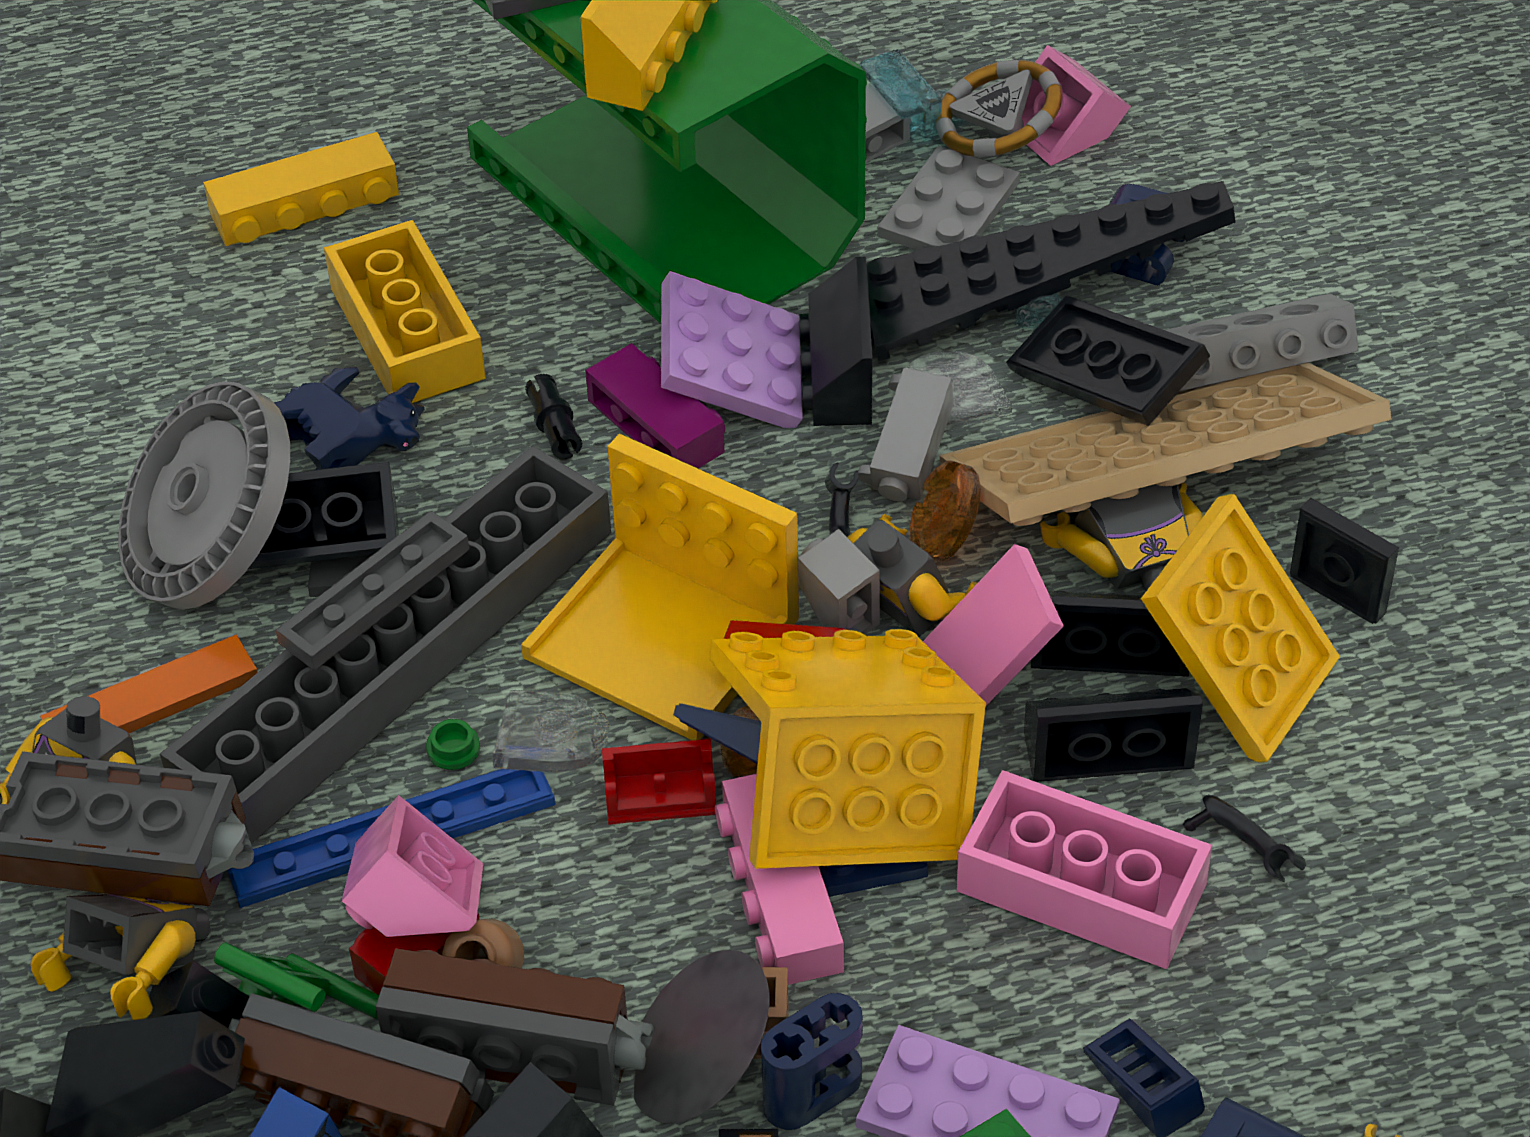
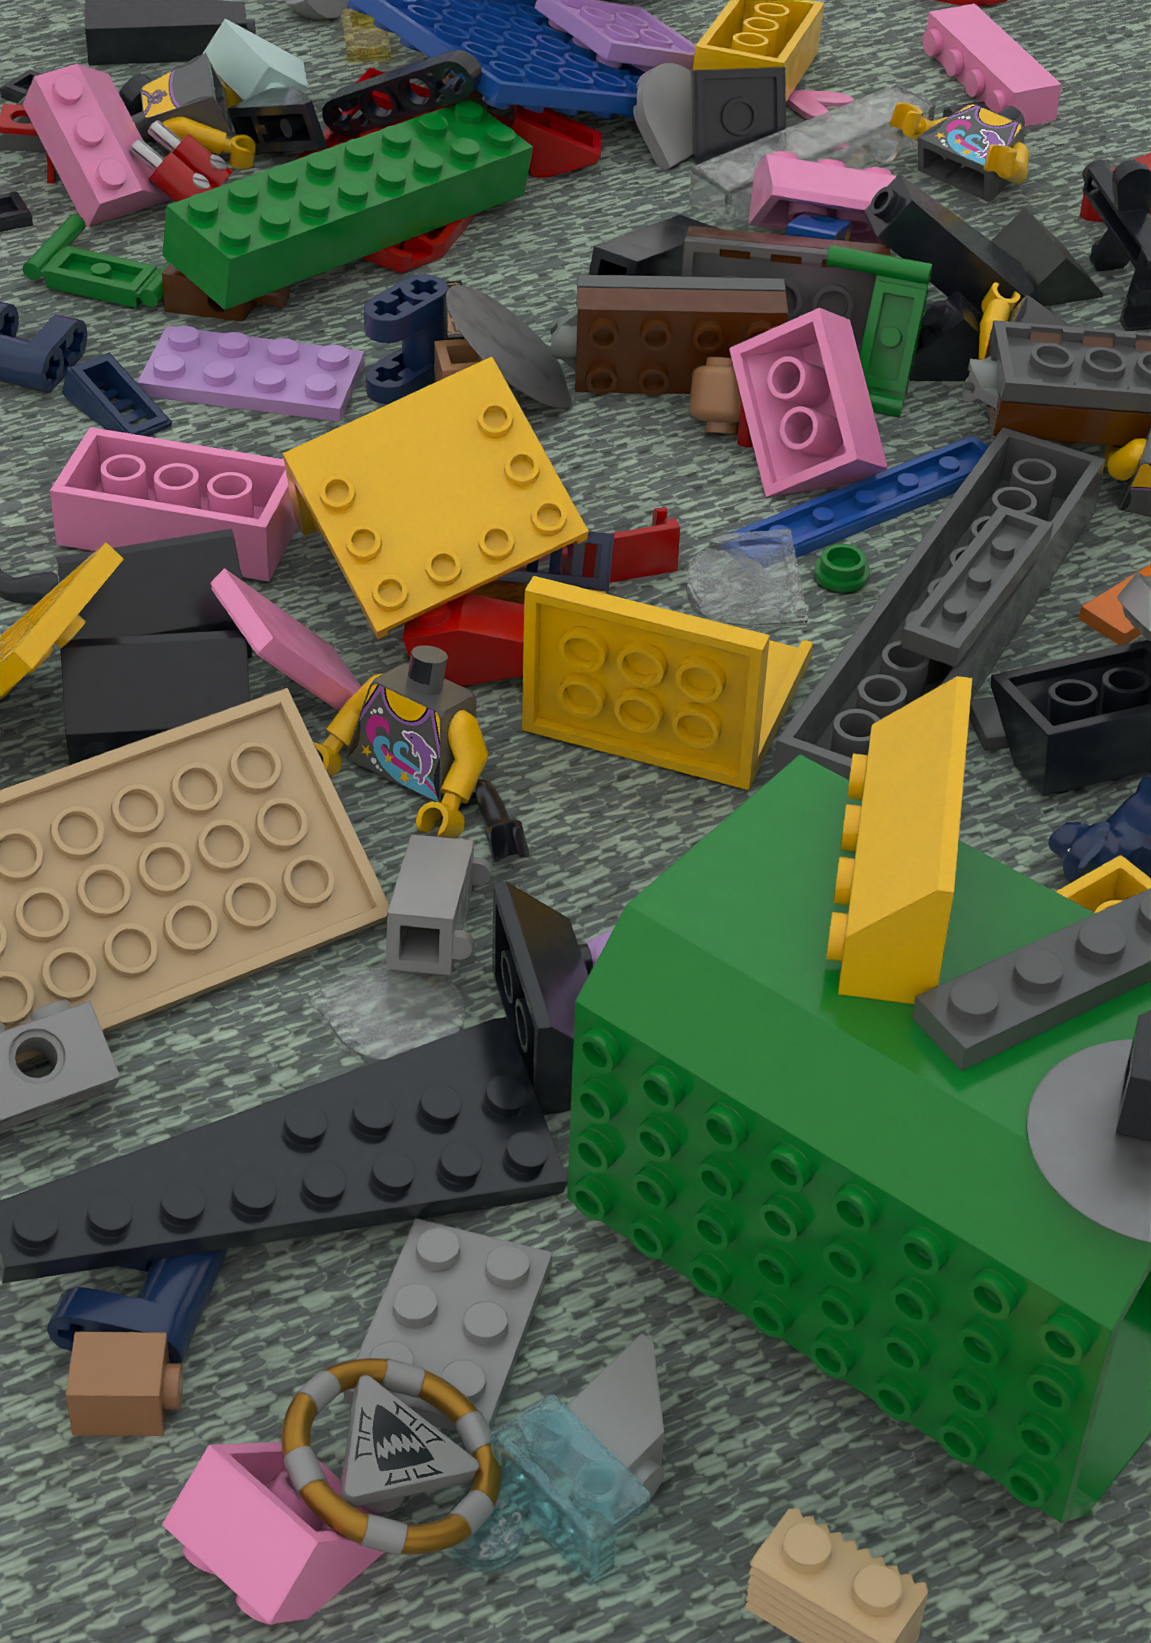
camera: 165 degrees right, 5 degrees down
(840, 584) = (481, 659): light grey slope -> none
(948, 510) = (366, 798): clear orange tile -> none
(1108, 359) = (178, 1006): black tile -> none
(1153, 170) = (122, 1384): none -> medium nougat brick

